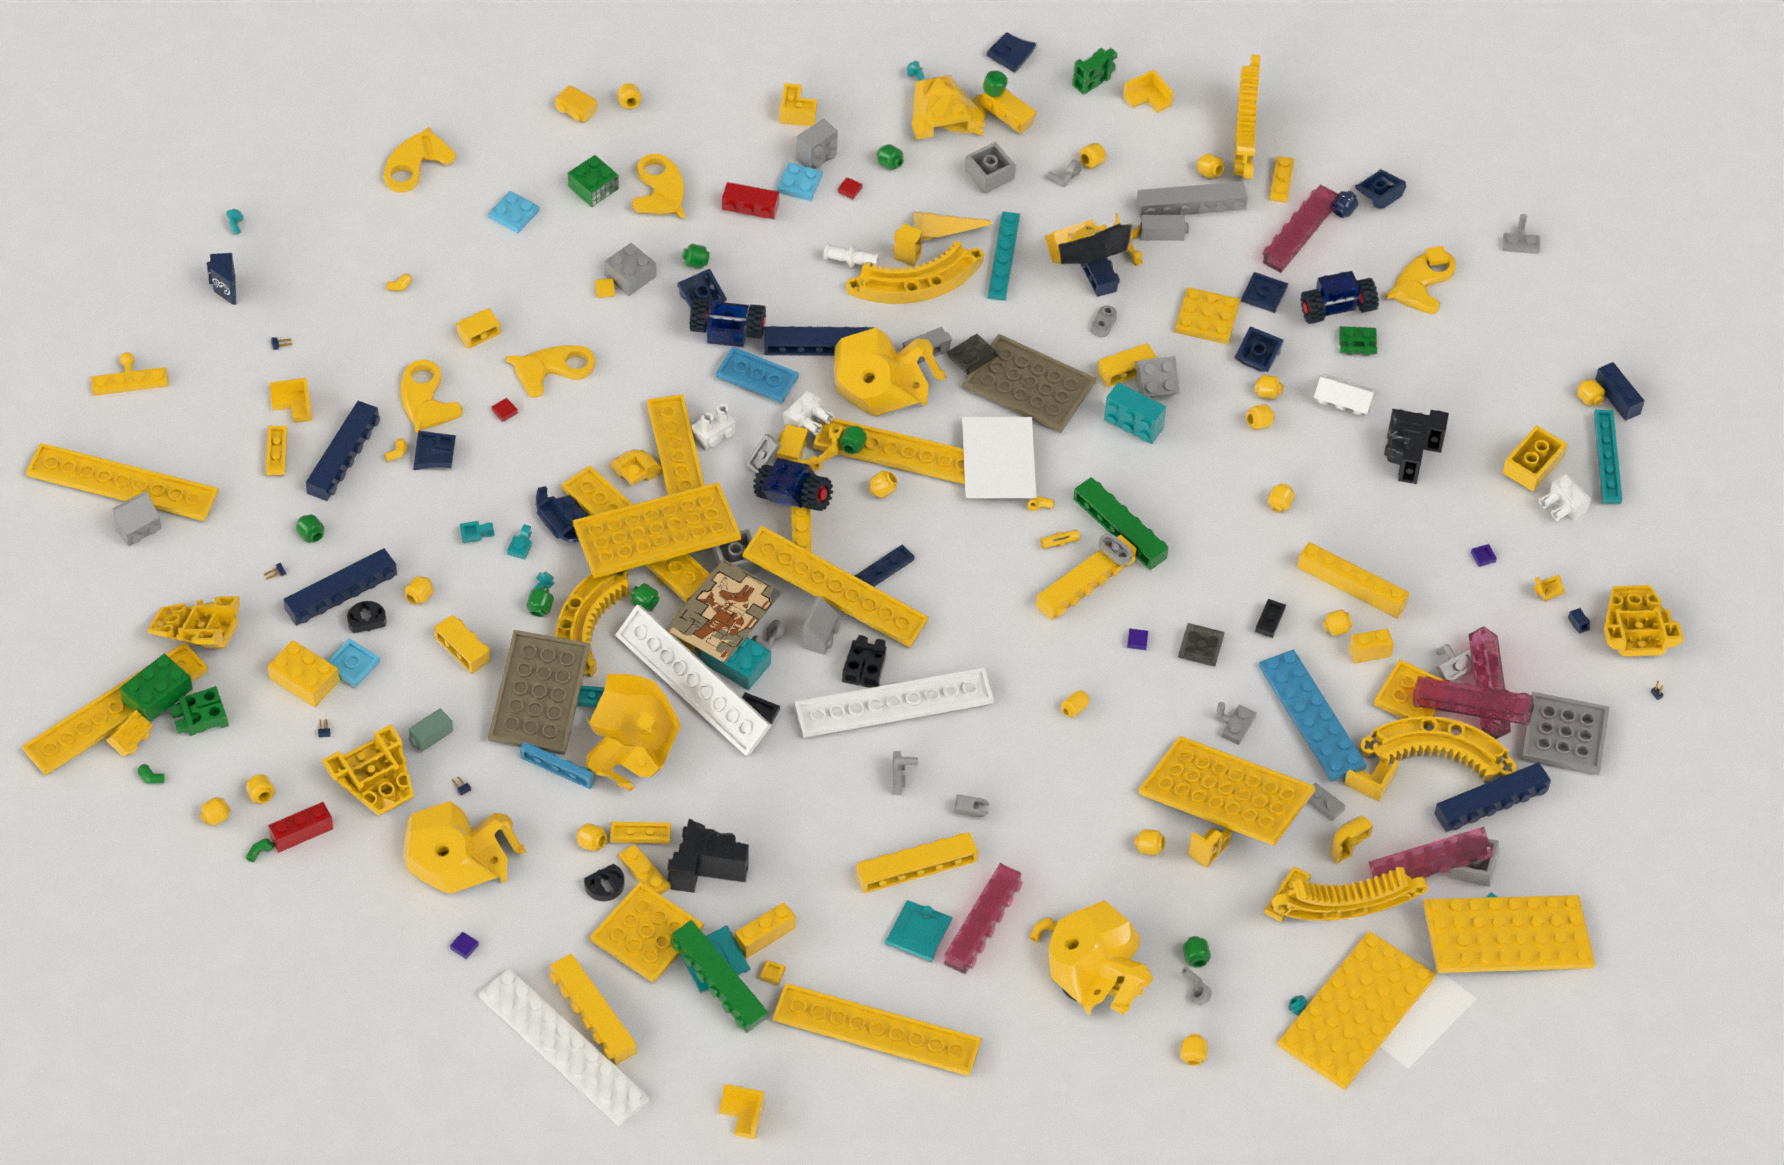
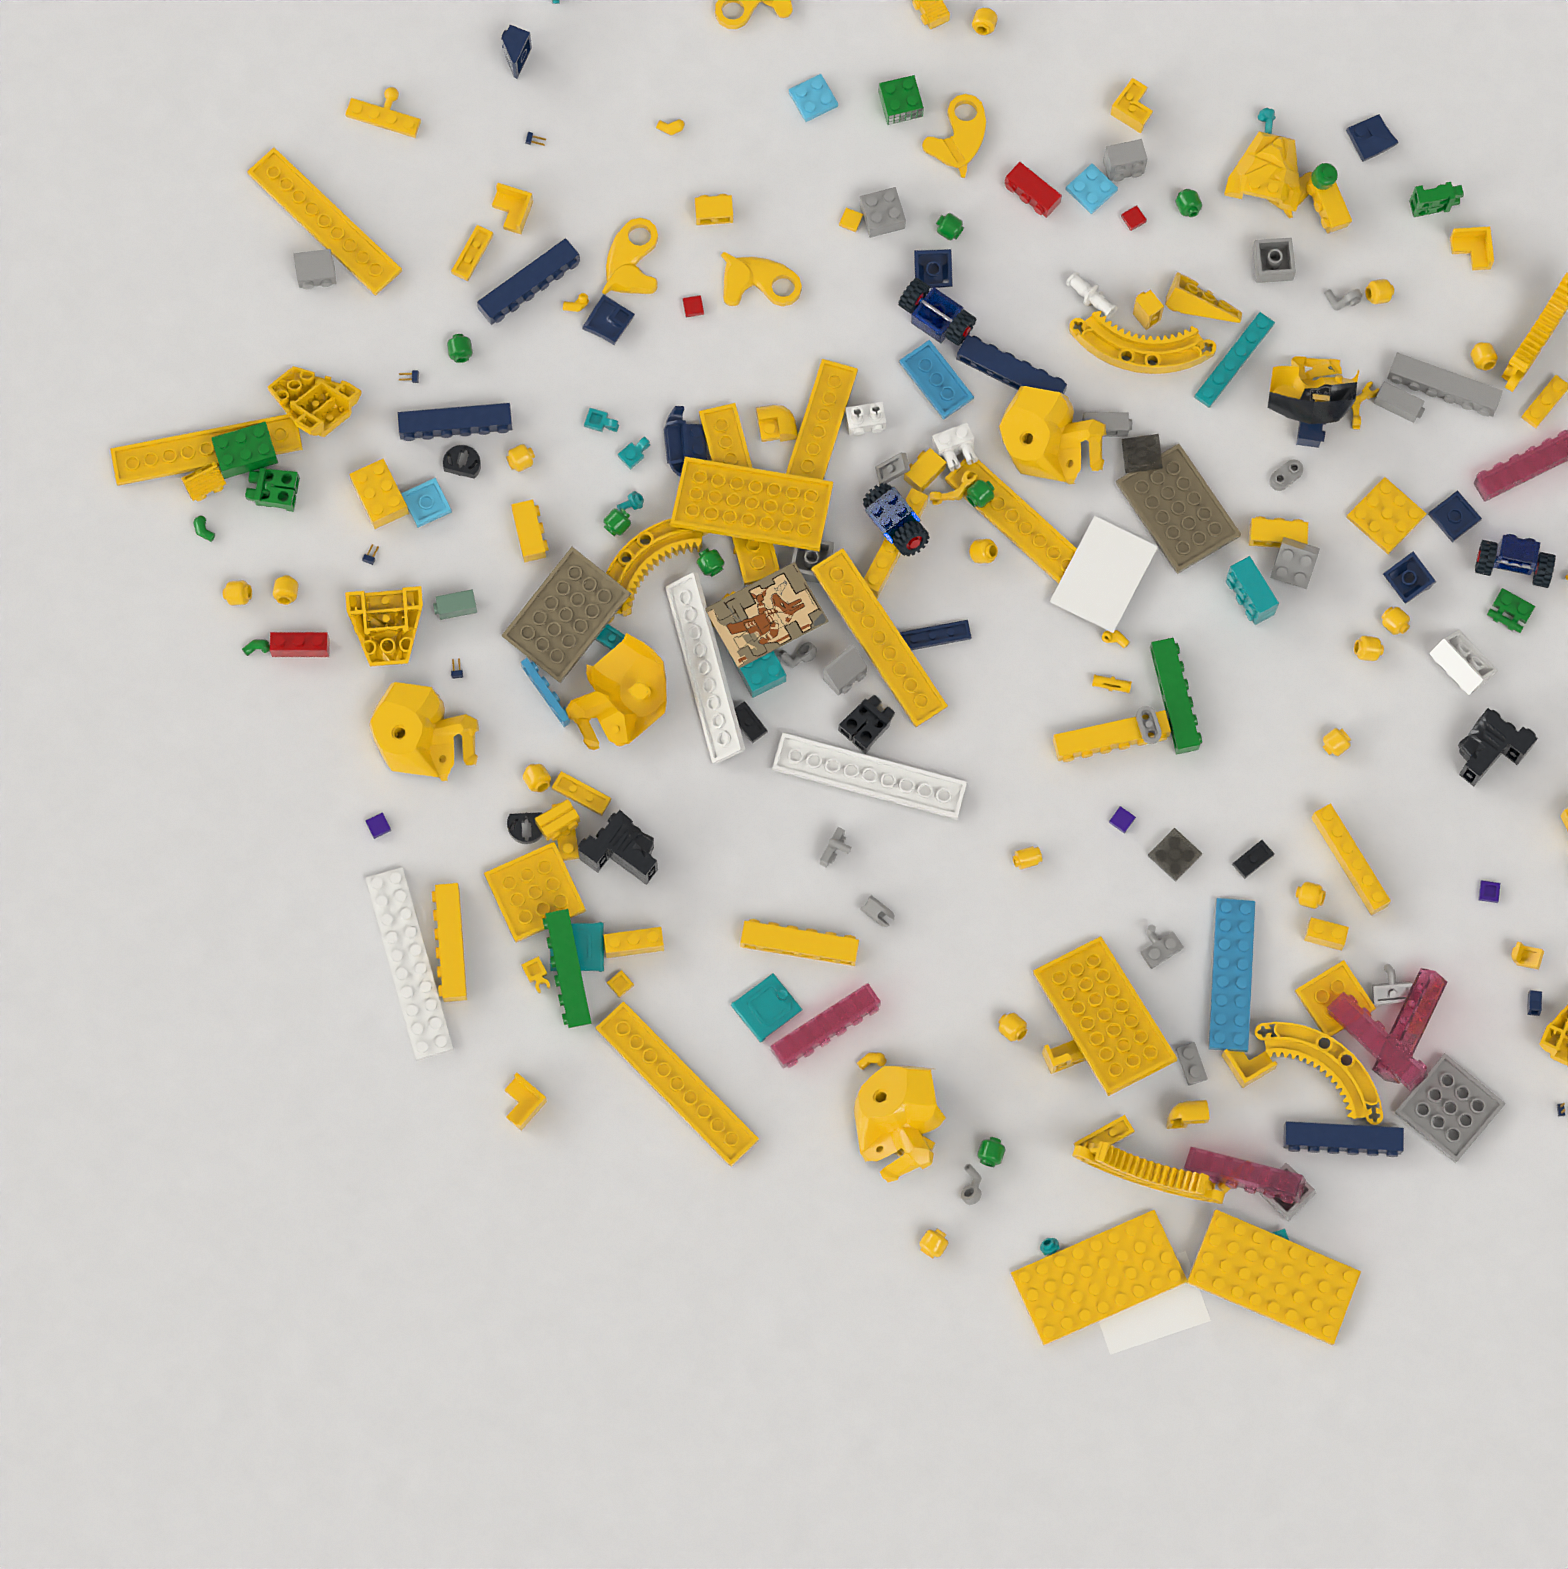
camera: 30 degrees right, 20 degrees up
(633, 859) = (558, 820): none -> yellow brick
(689, 997) = (535, 972): none -> yellow plate

